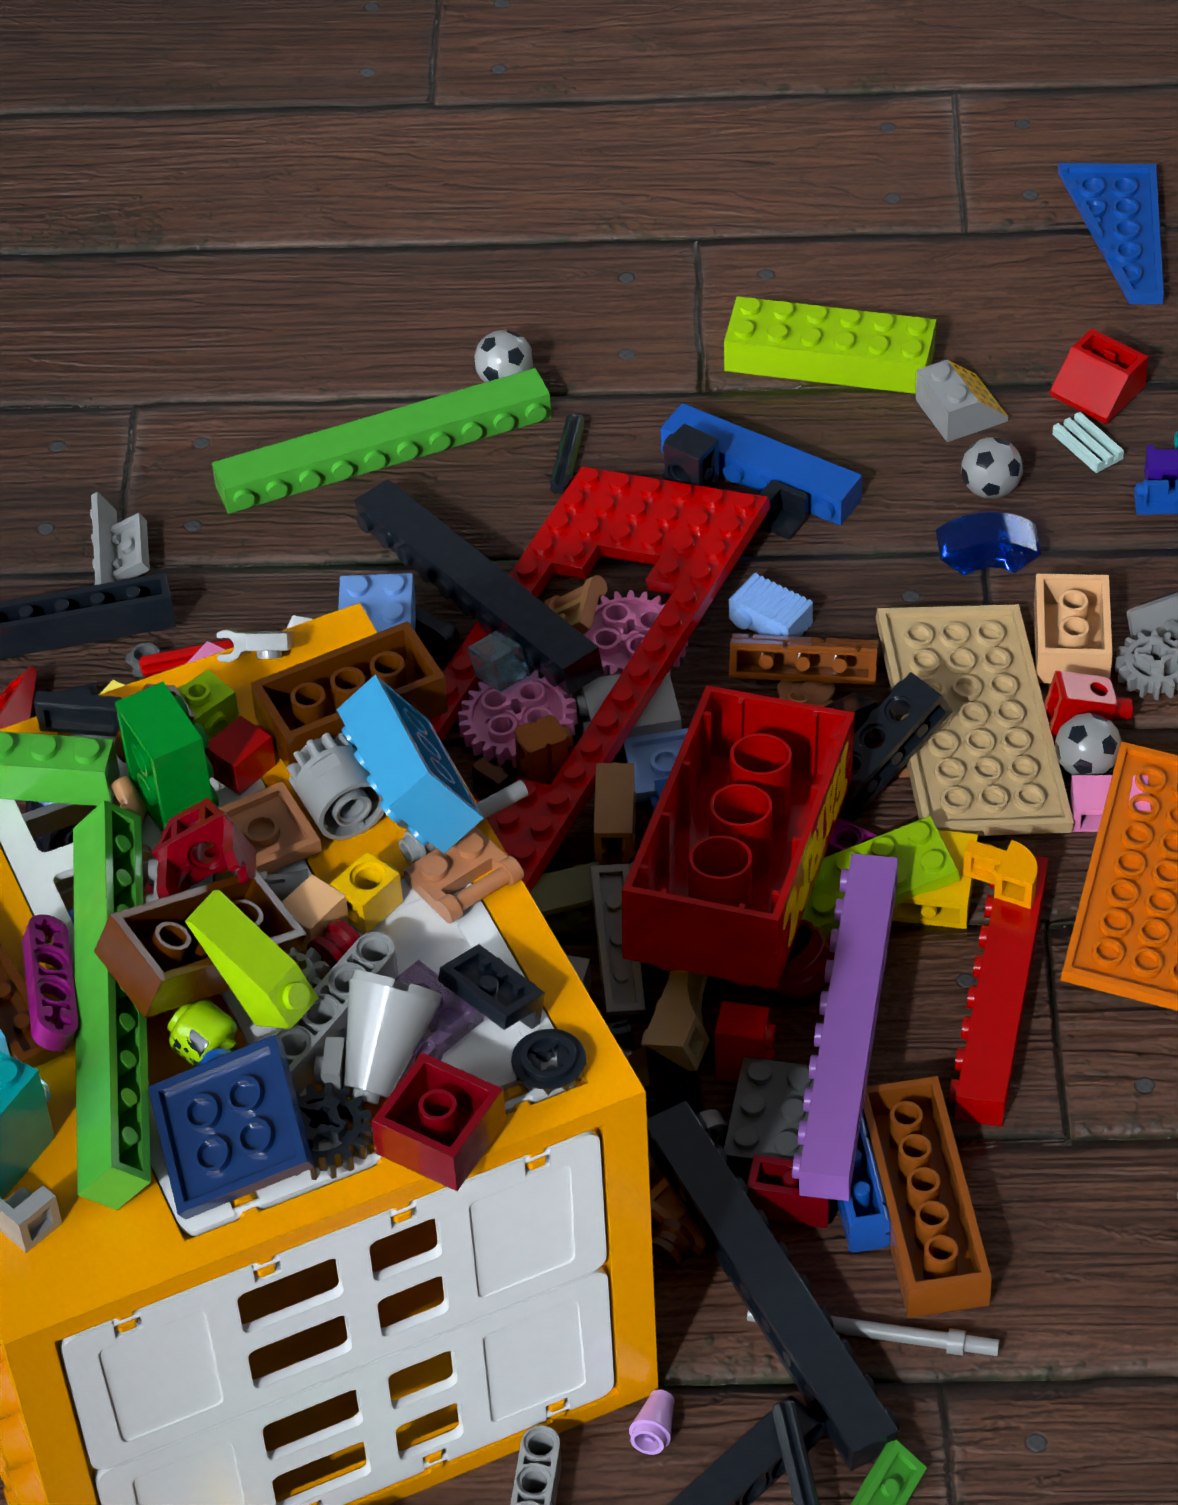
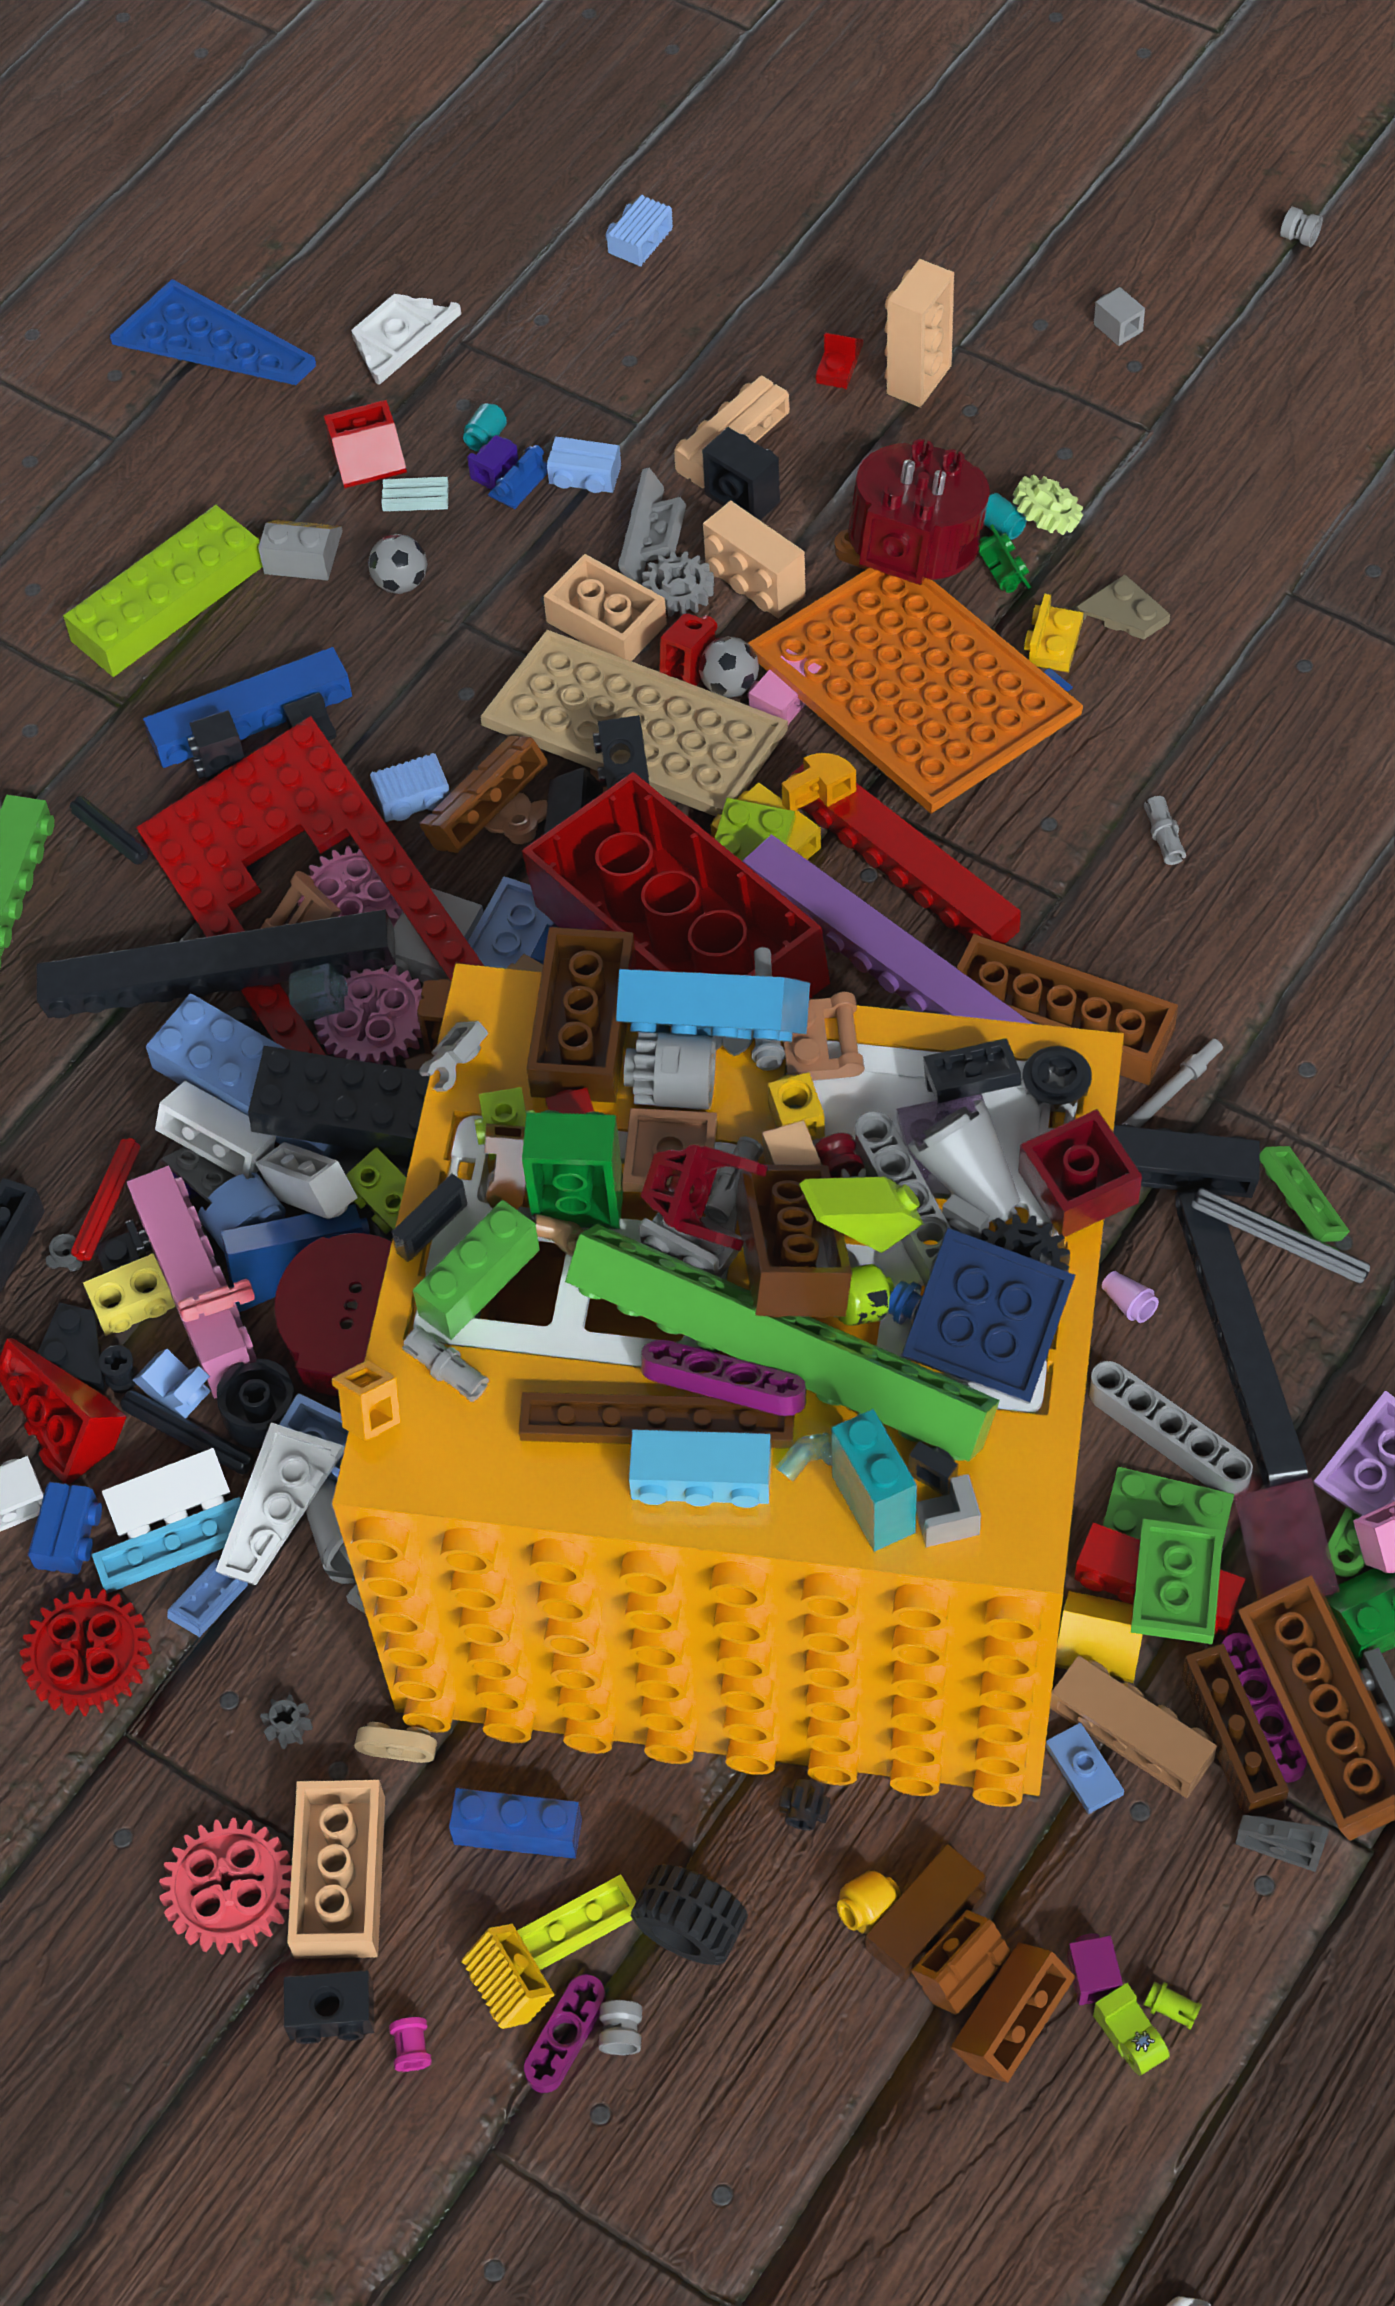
camera: 55 degrees left, 10 degrees up
(59, 1174) = (932, 1467): none -> black plate
(988, 541) = (470, 610): clear blue brick -> none

